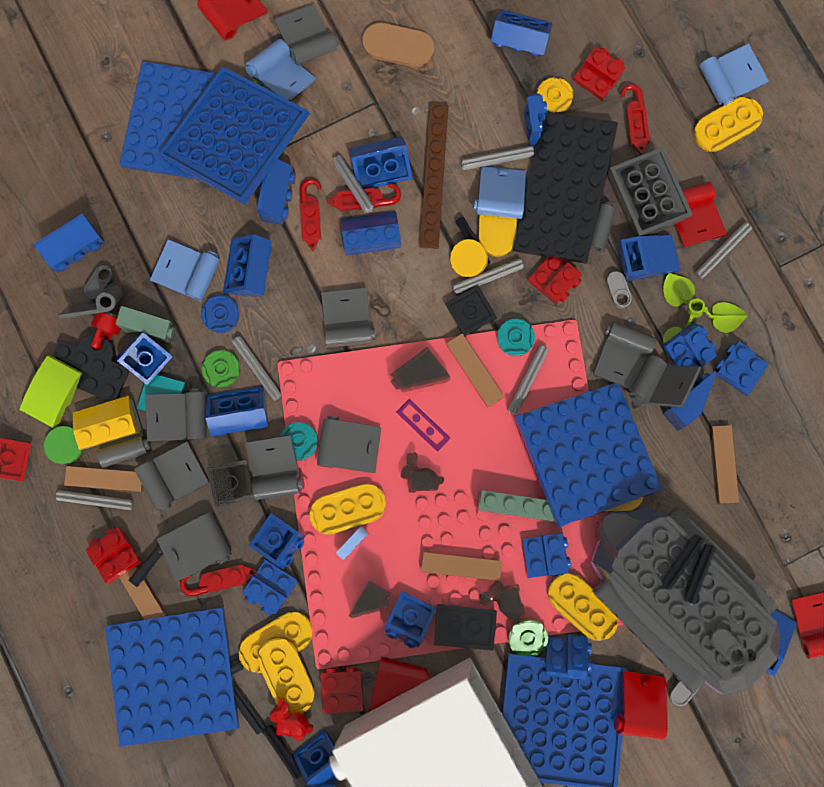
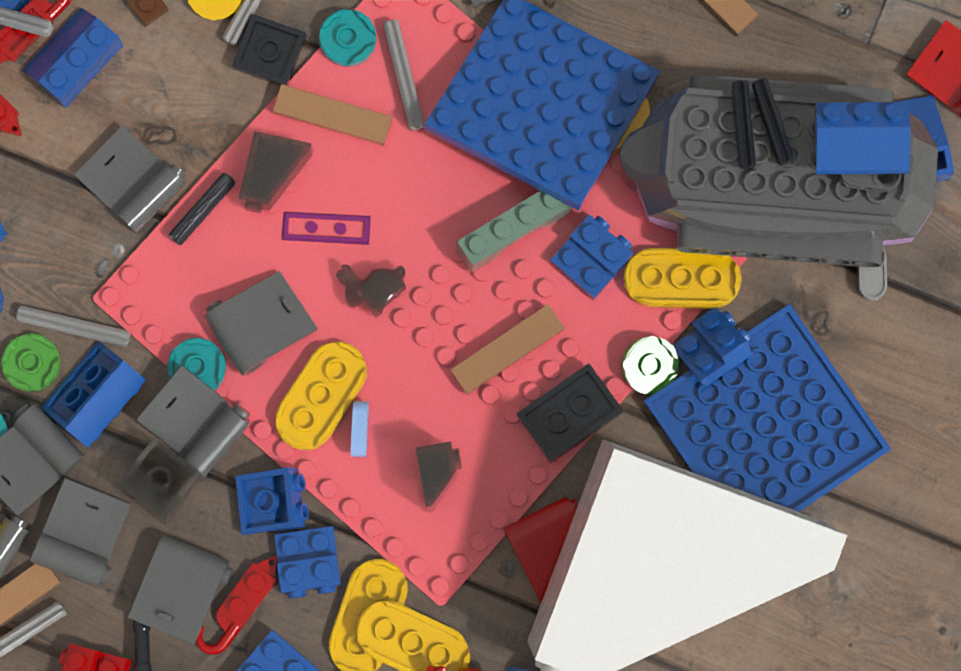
camera: 40 degrees left, 0 degrees up
(342, 690) = (490, 604): red plate -> none
(369, 363) = (202, 209): none -> black axle
(409, 620) = (499, 458): blue plate -> none
(506, 598) = (591, 341): clear smoke animal -> none
(643, 706) = (841, 330): red door -> none
(741, 625) = (862, 138): none -> blue slope

